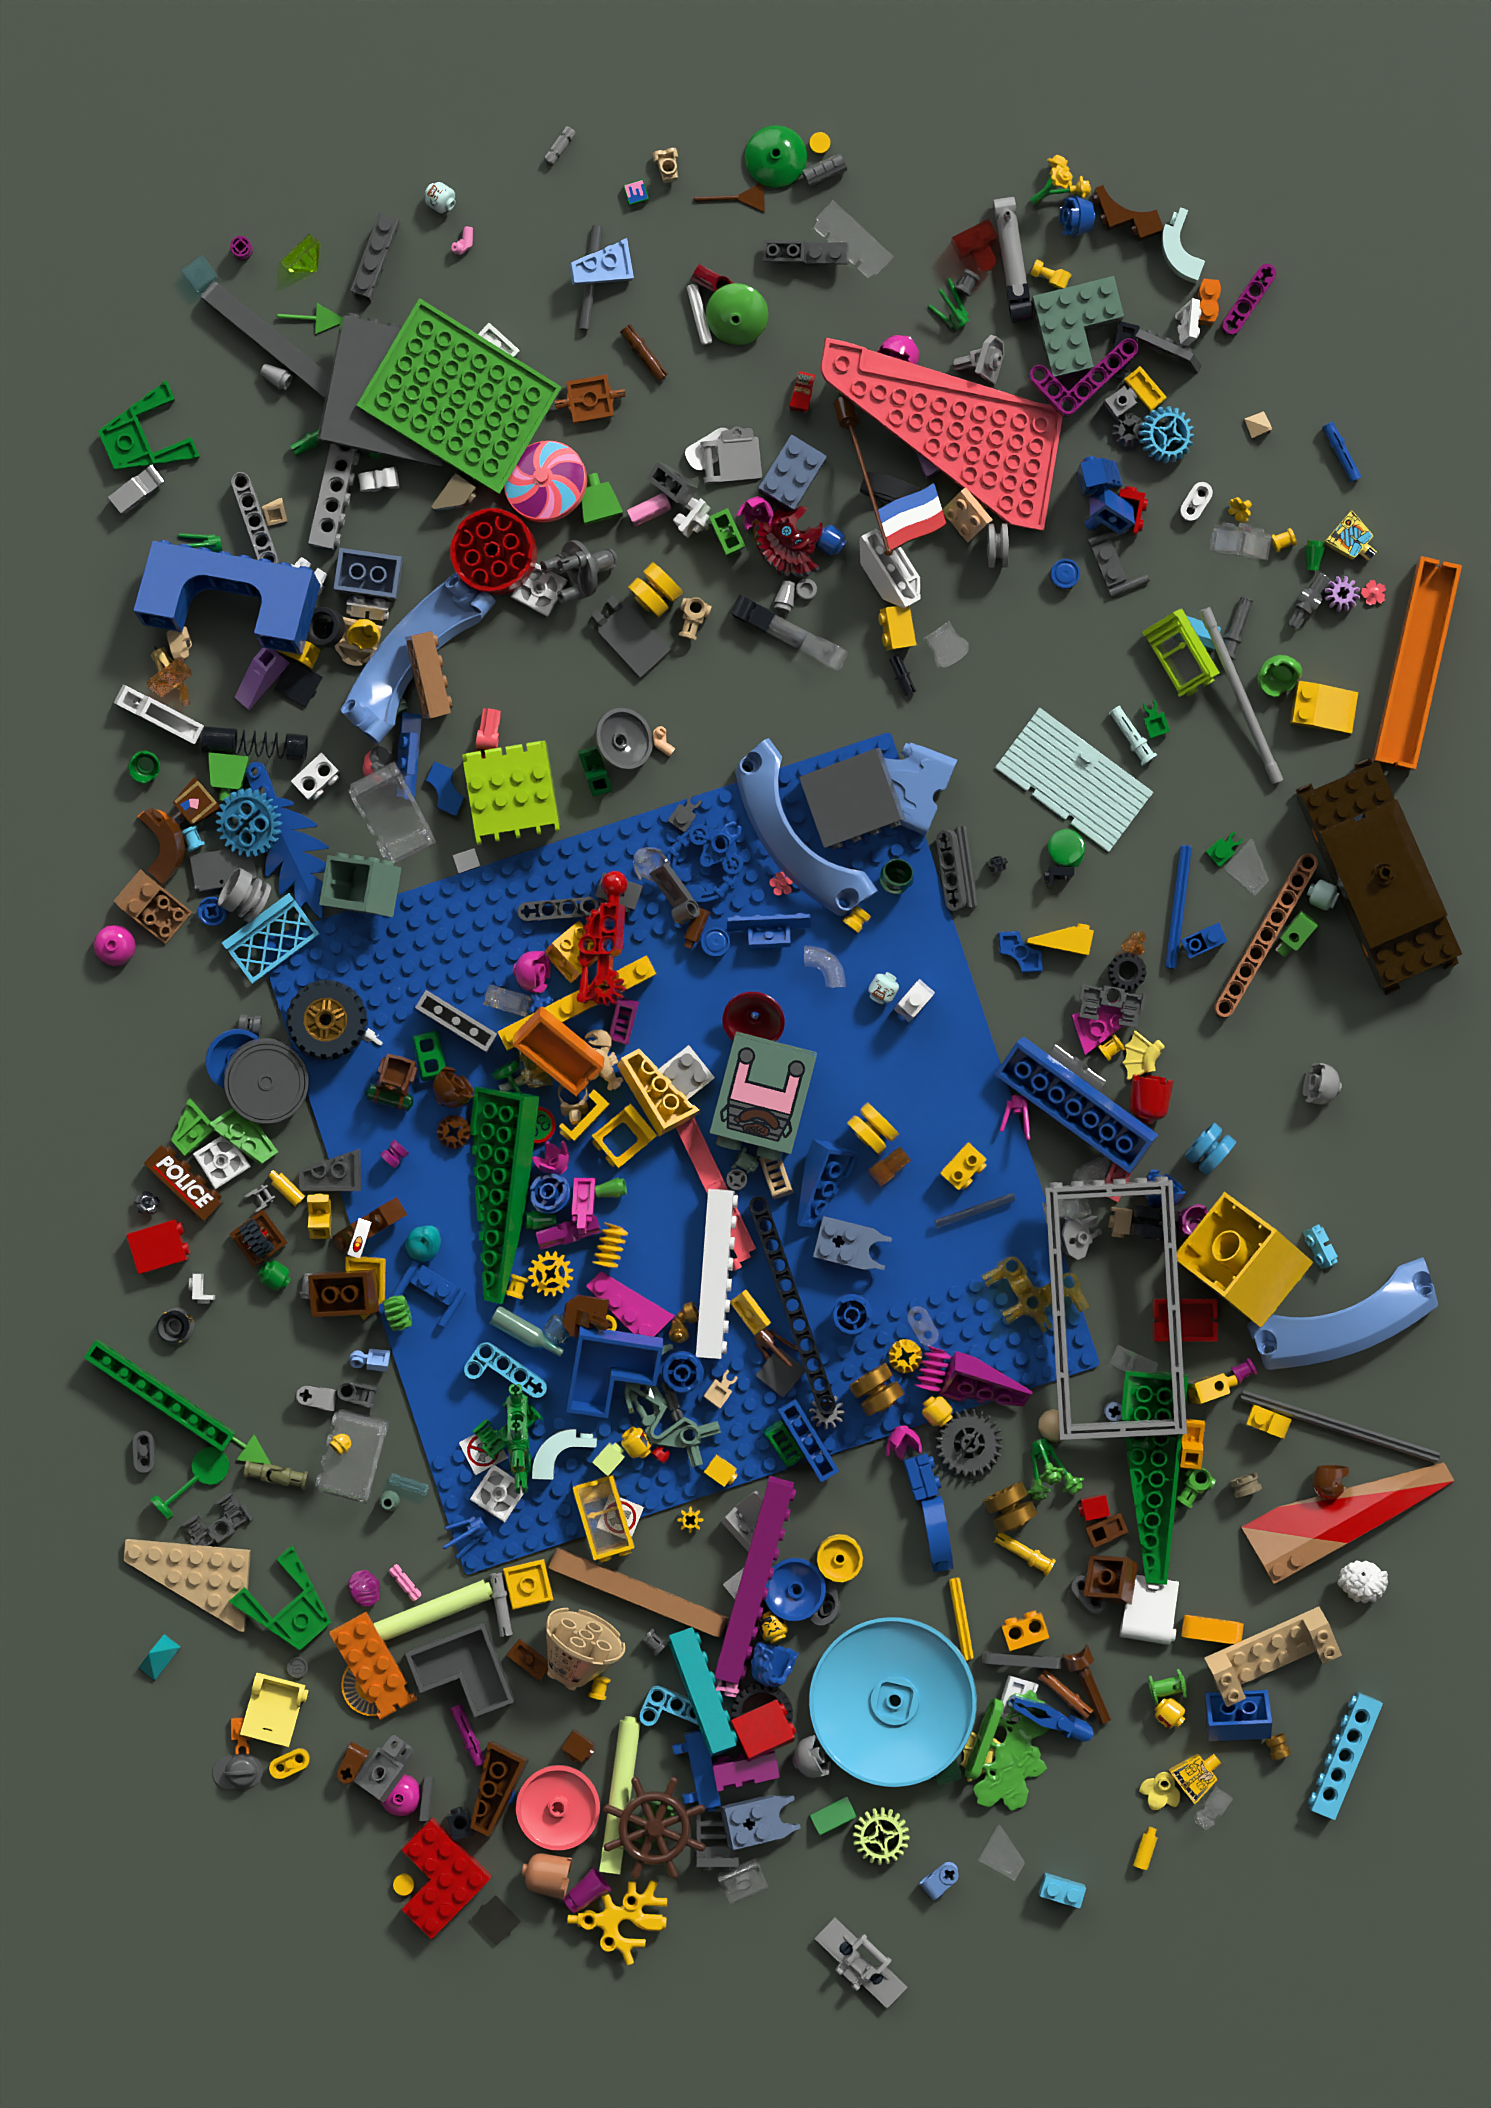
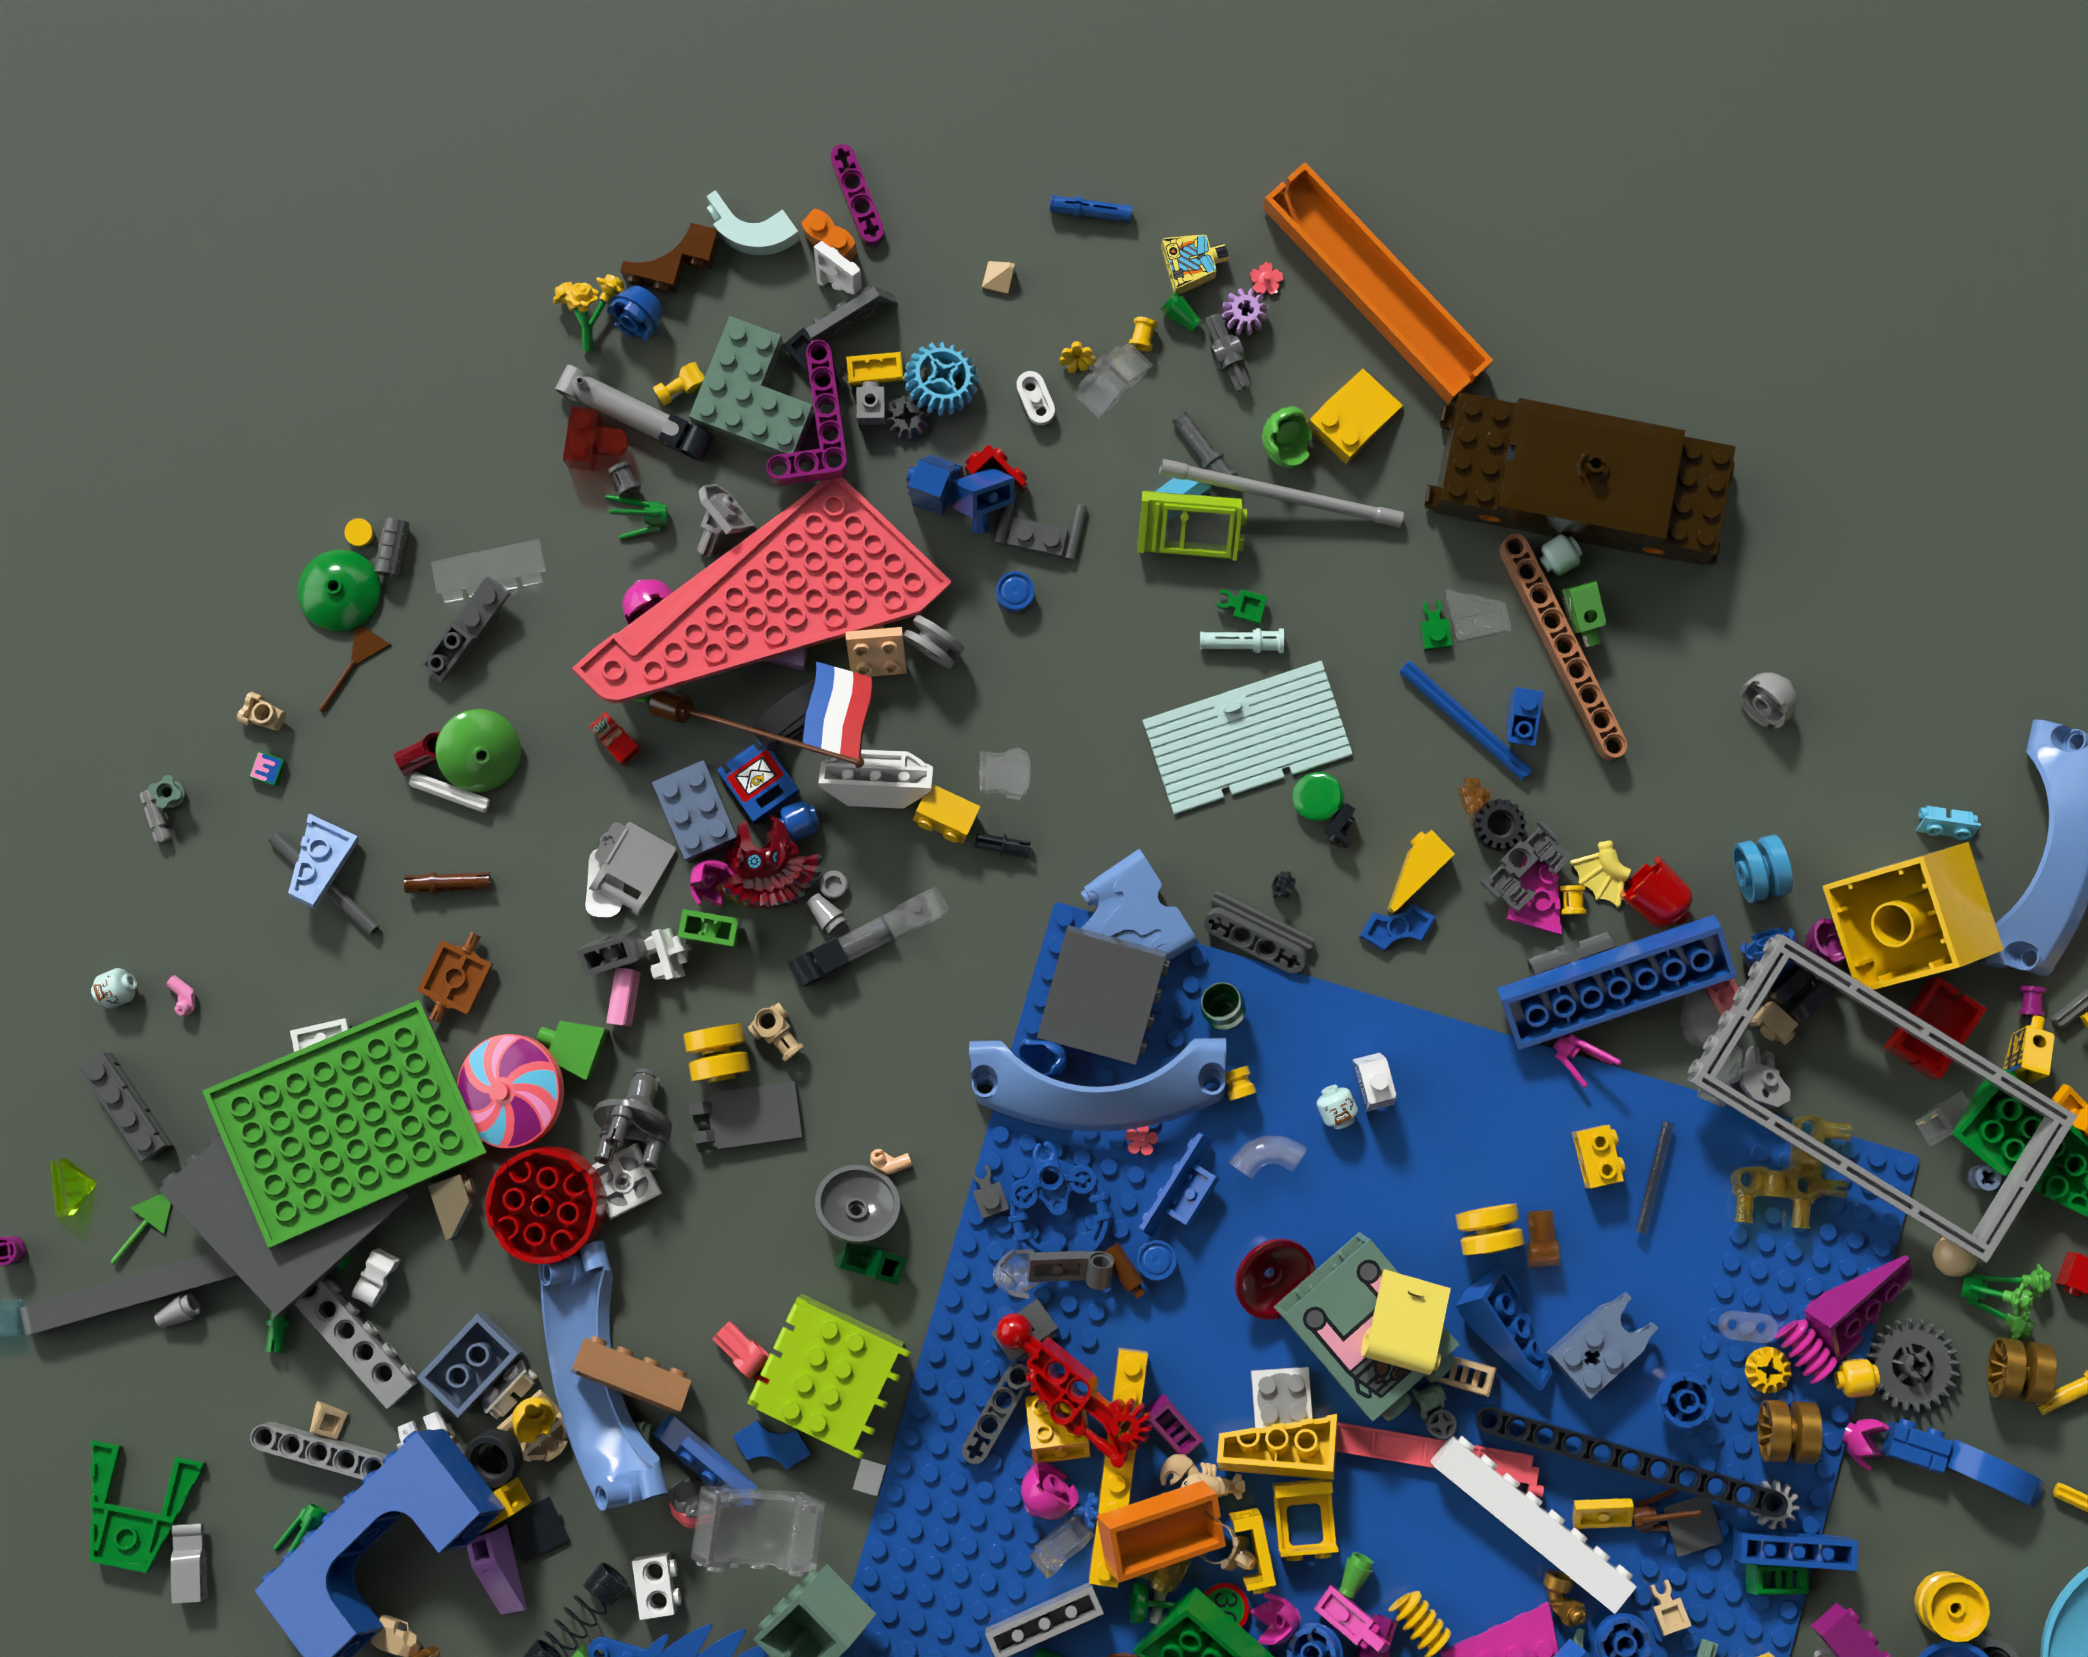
camera: 60 degrees left, 5 degrees down
(579, 137) = (161, 789): none -> sand green brick
(779, 1112) = (1405, 1326): none -> light yellow door
(786, 782) = (1032, 1054): none -> blue hair
(839, 494) = (755, 775): none -> container

